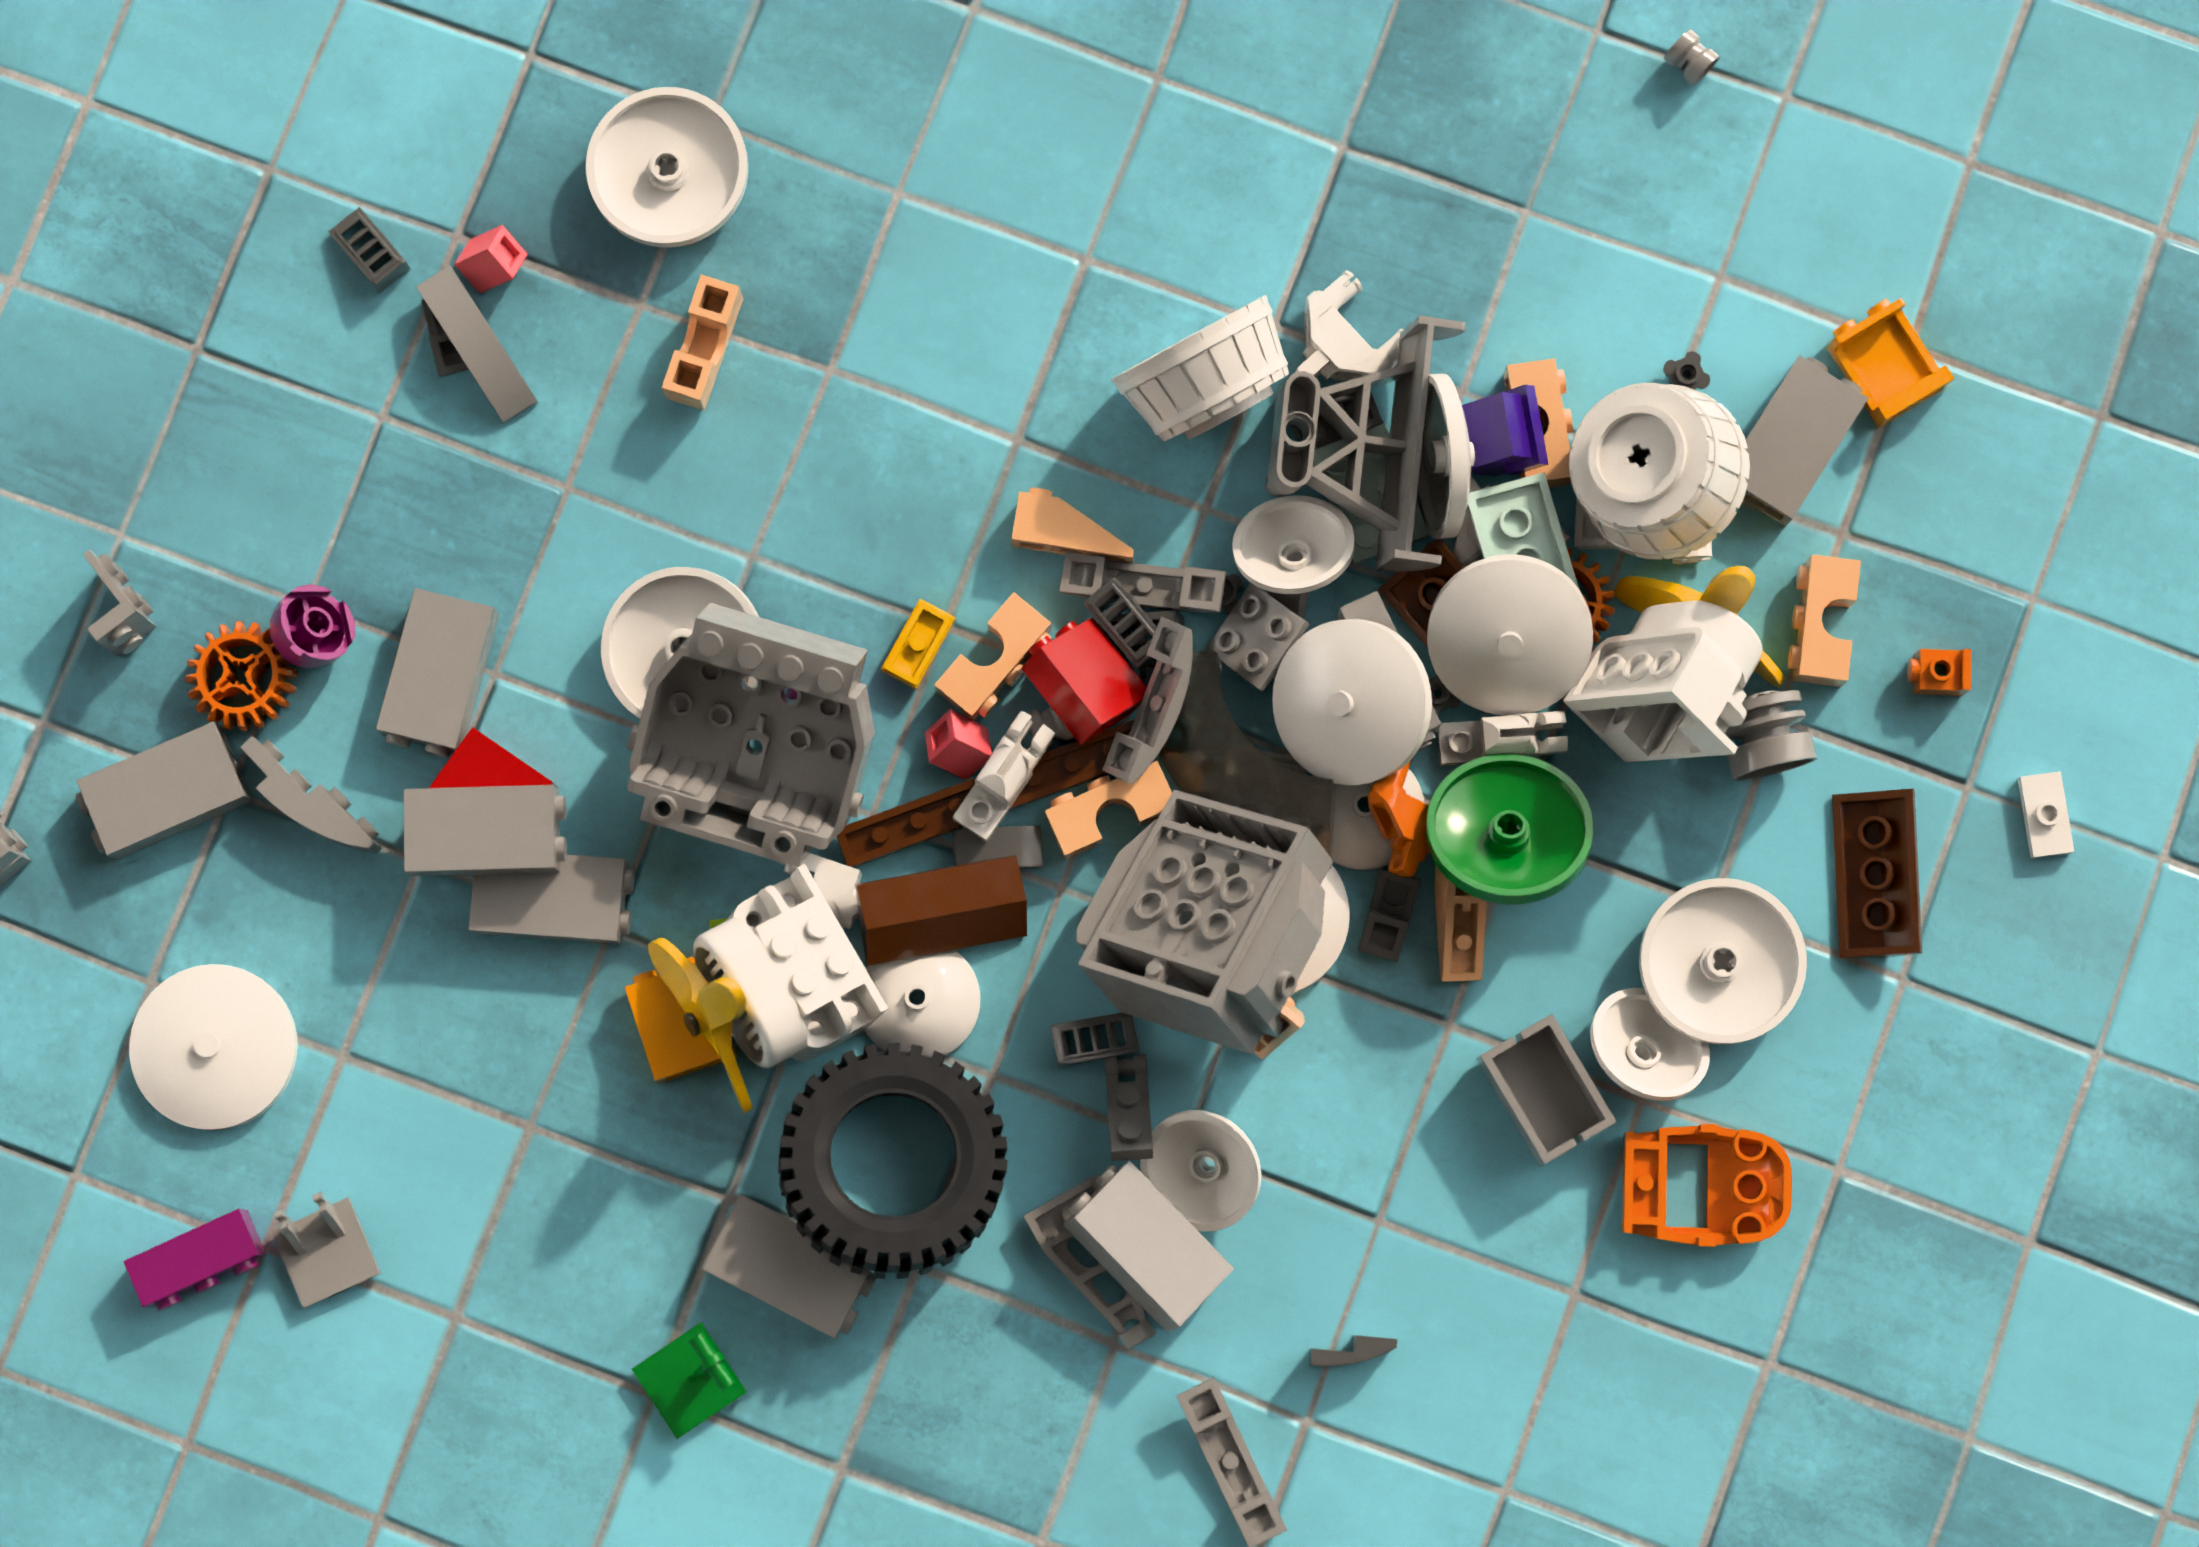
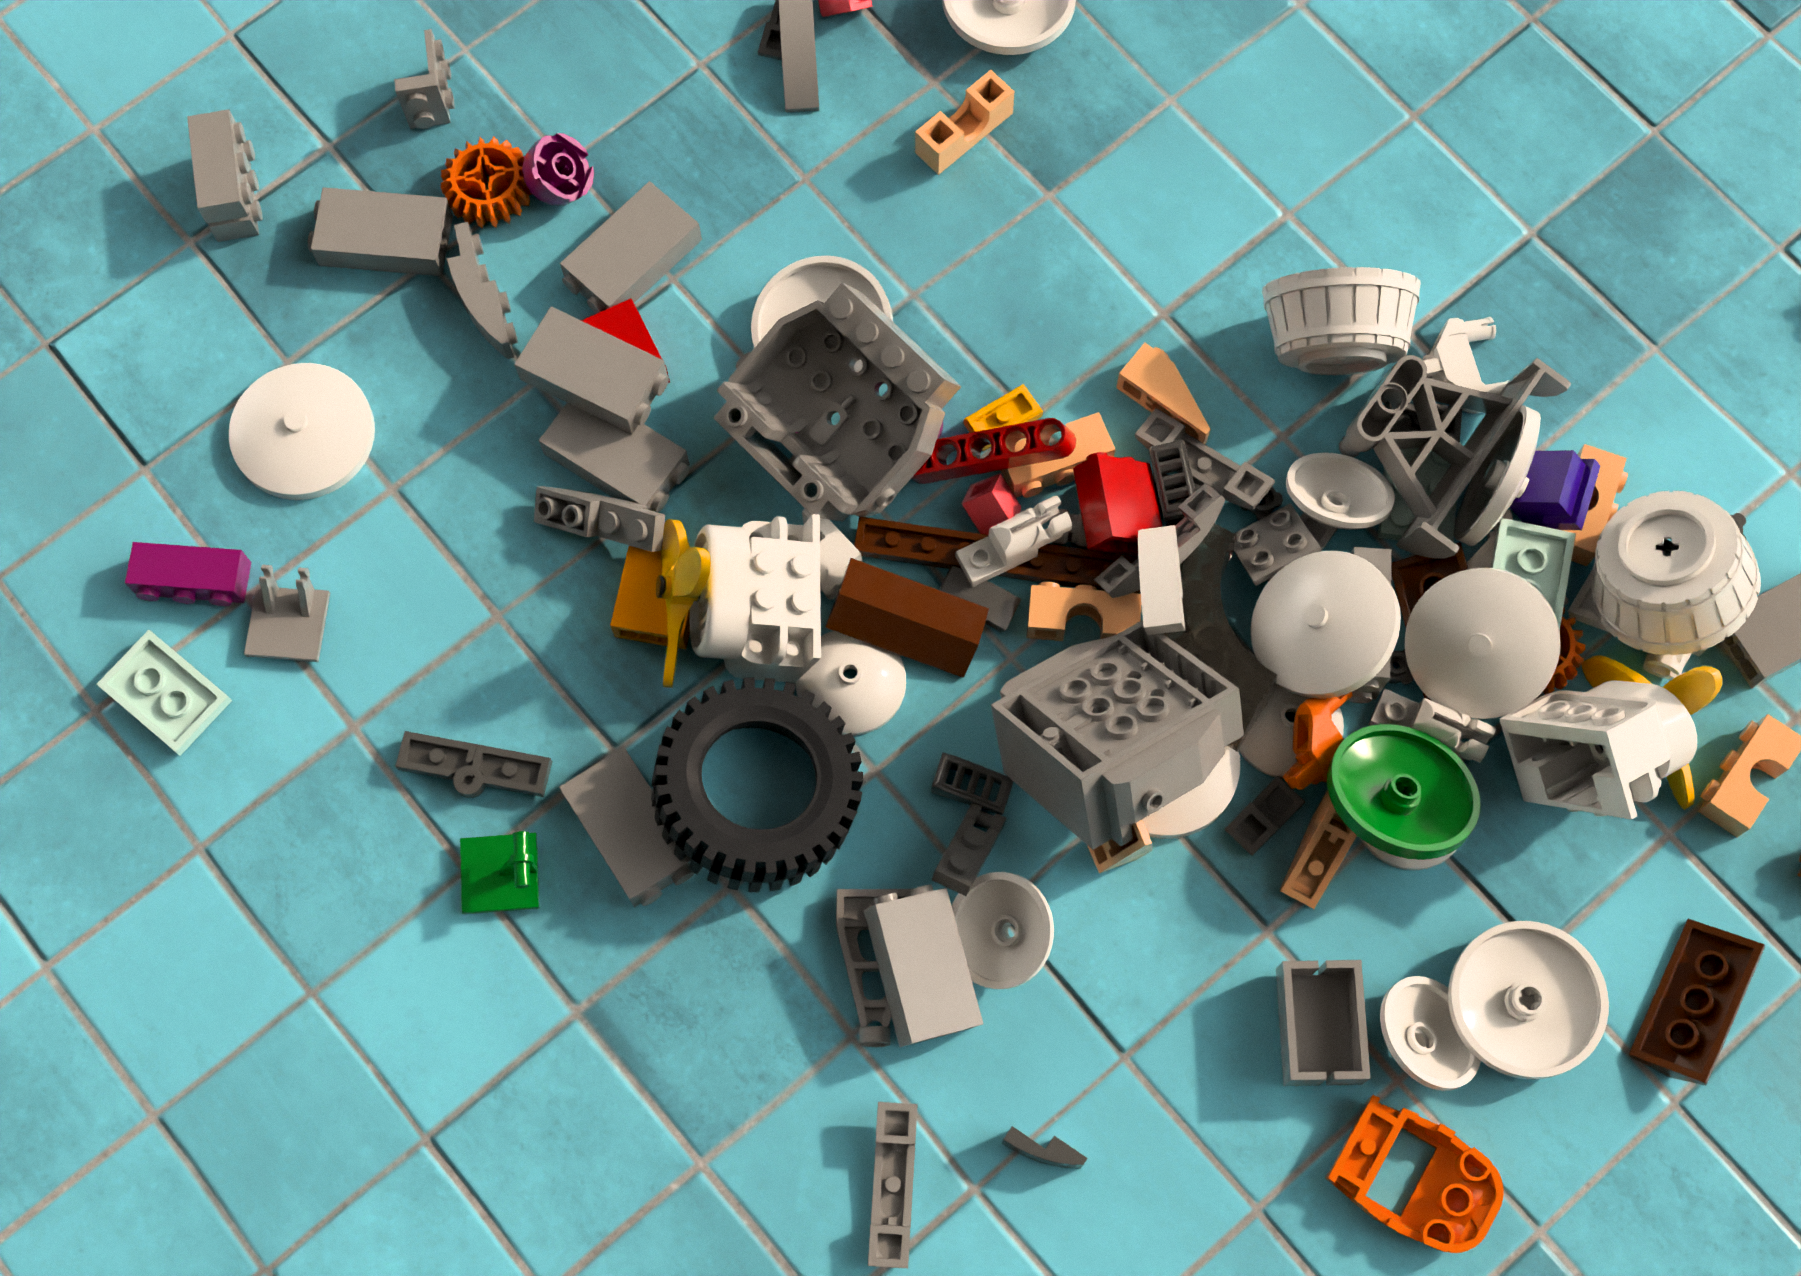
camera: 30 degrees right, 10 degrees down
(248, 1390) = (164, 692): none -> light aqua plate
(579, 971) = (600, 516): none -> light grey slope
(600, 1290) = (473, 765): none -> dark grey hinge
(942, 689) = (1002, 450): none -> red beam
(1170, 744) = (1160, 580): none -> white slope
(1767, 737) = (1660, 838): light grey wheel -> none

